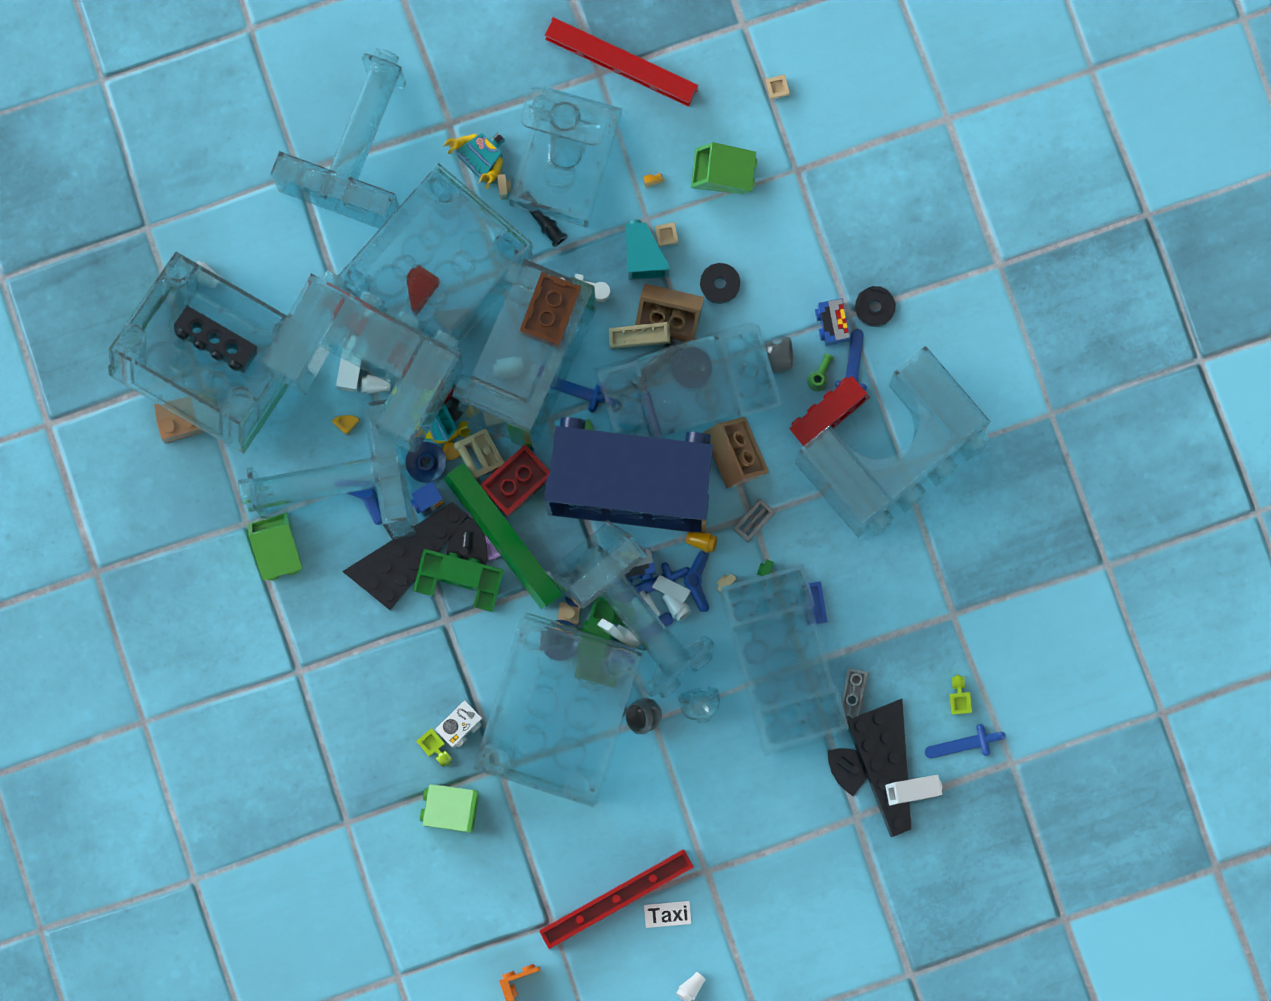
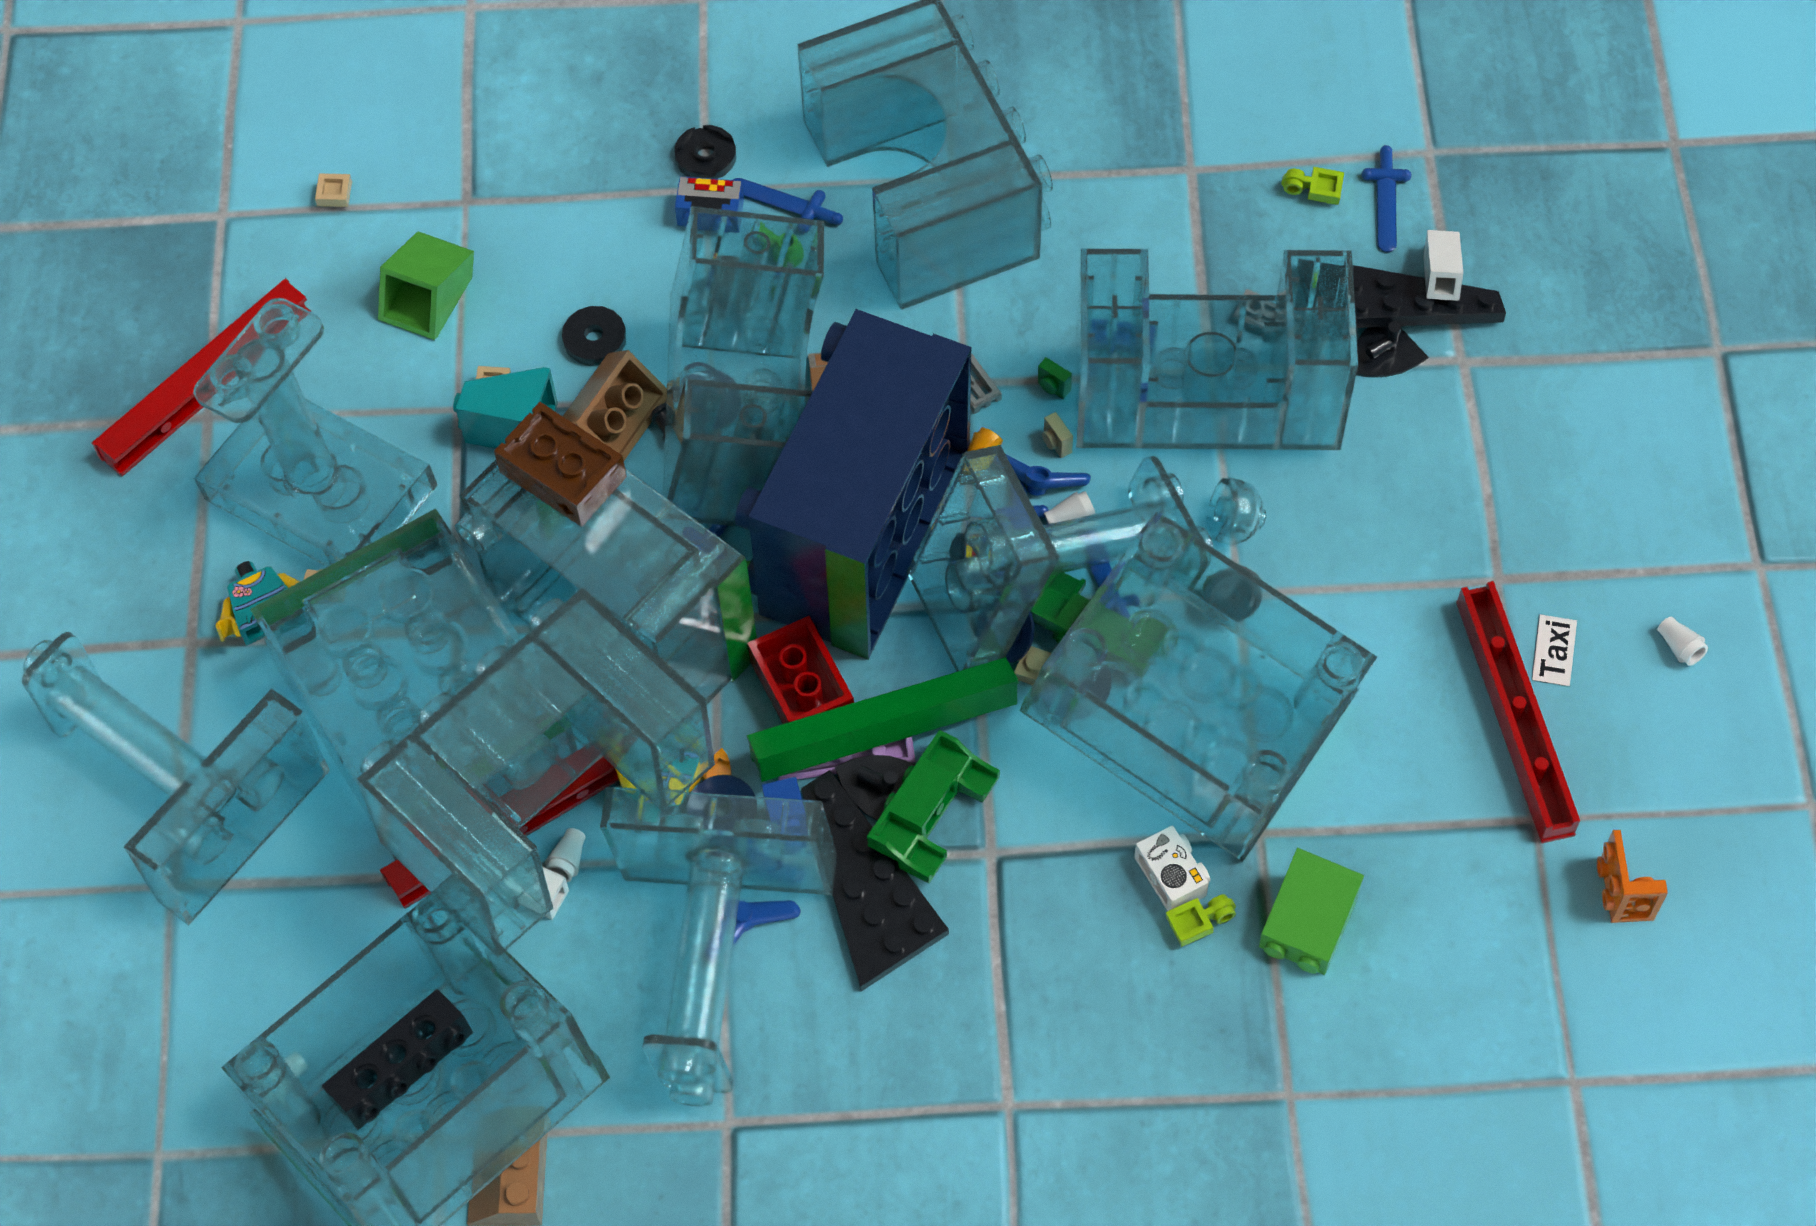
camera: 75 degrees left, 20 degrees down
(275, 547) = (784, 1079): bright green slope -> none
(346, 423) = (613, 919): light orange tile -> none
(420, 287) = (435, 674): clear red slope -> none
(483, 449) = (737, 717): tan plate -> none
(619, 633) = (1089, 582): white slope -> none
(639, 335) = (638, 438): tan plate -> none
(650, 180) = (400, 383): light orange tile -> none
(671, 589) = (1050, 501): white sticker -> none
(830, 411) = (844, 234): red brick -> none

